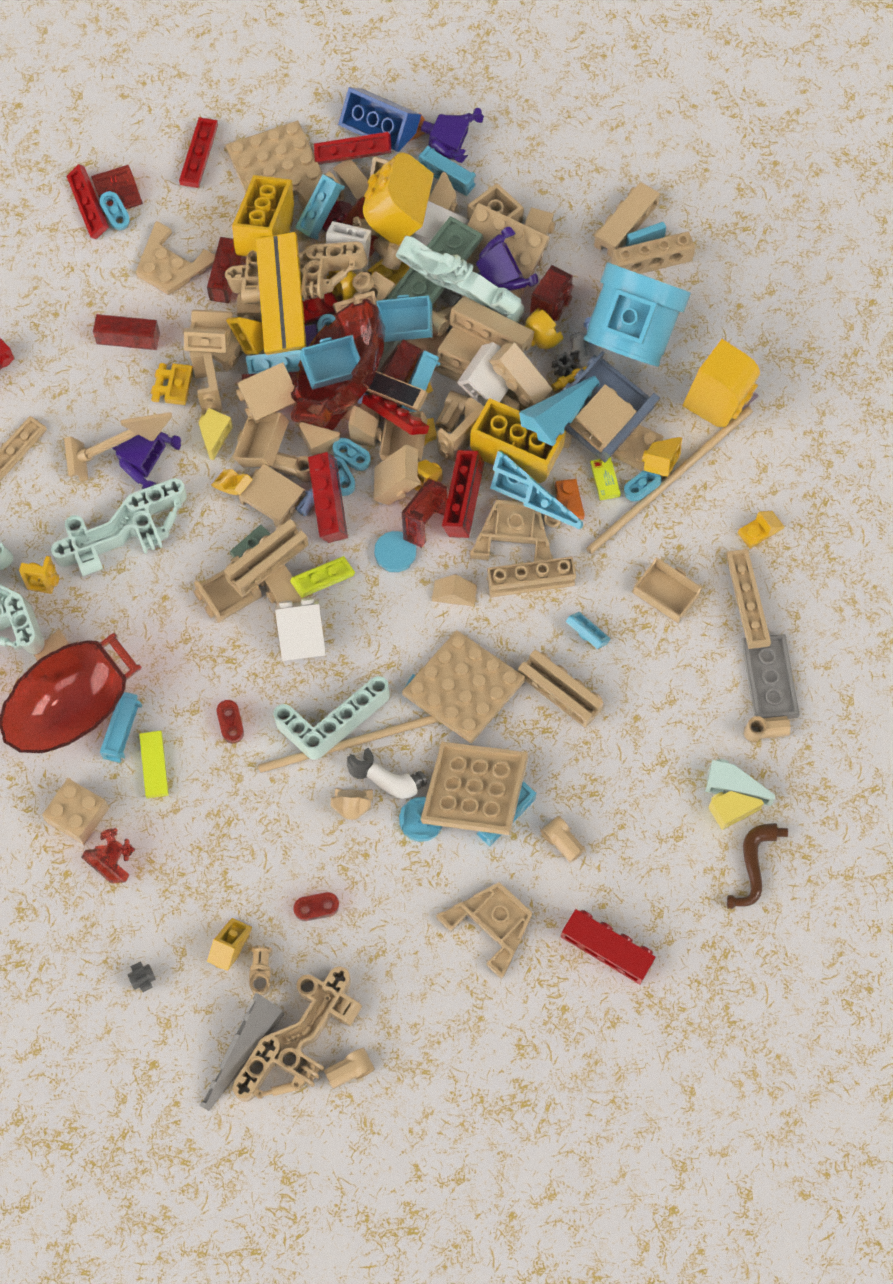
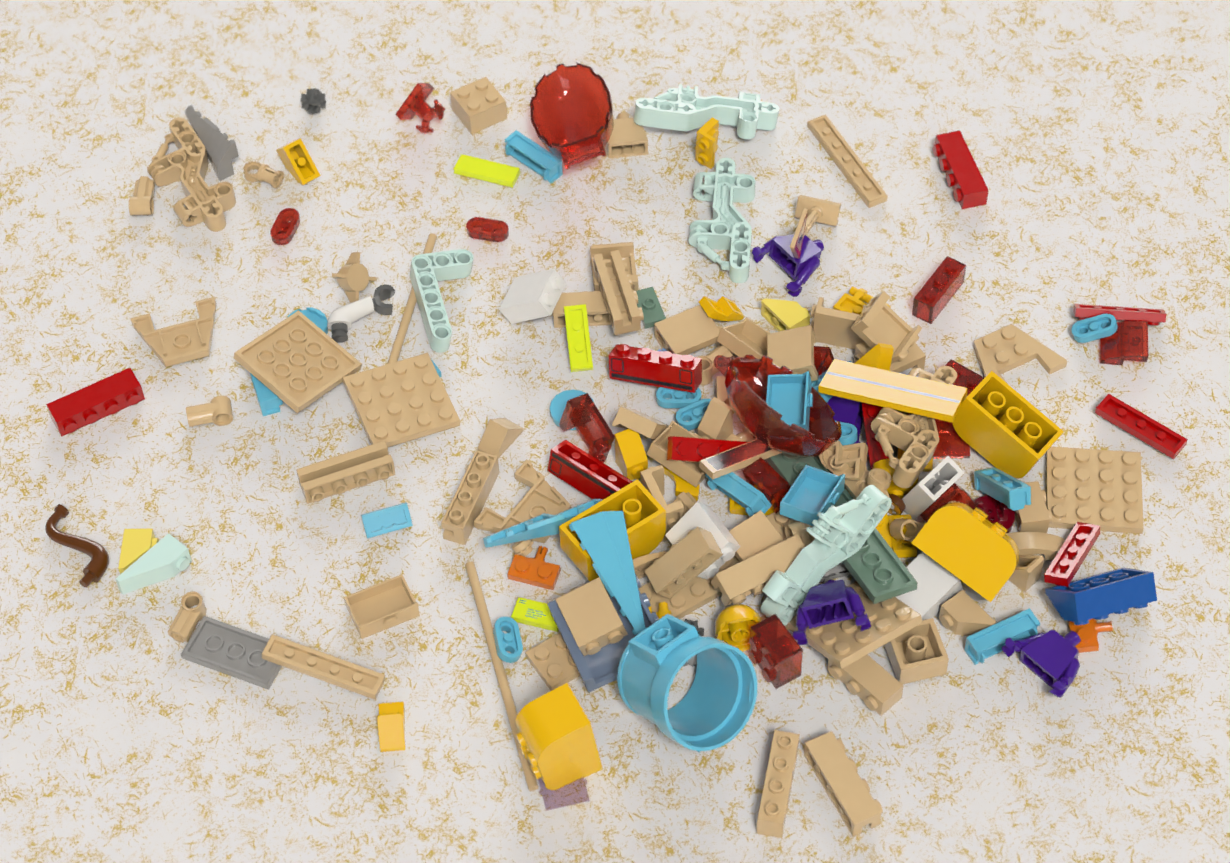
camera: 120 degrees right, 15 degrees down
(646, 234) = (809, 793): medium azure tile -> none
(662, 456) = (522, 665): yellow slope -> none

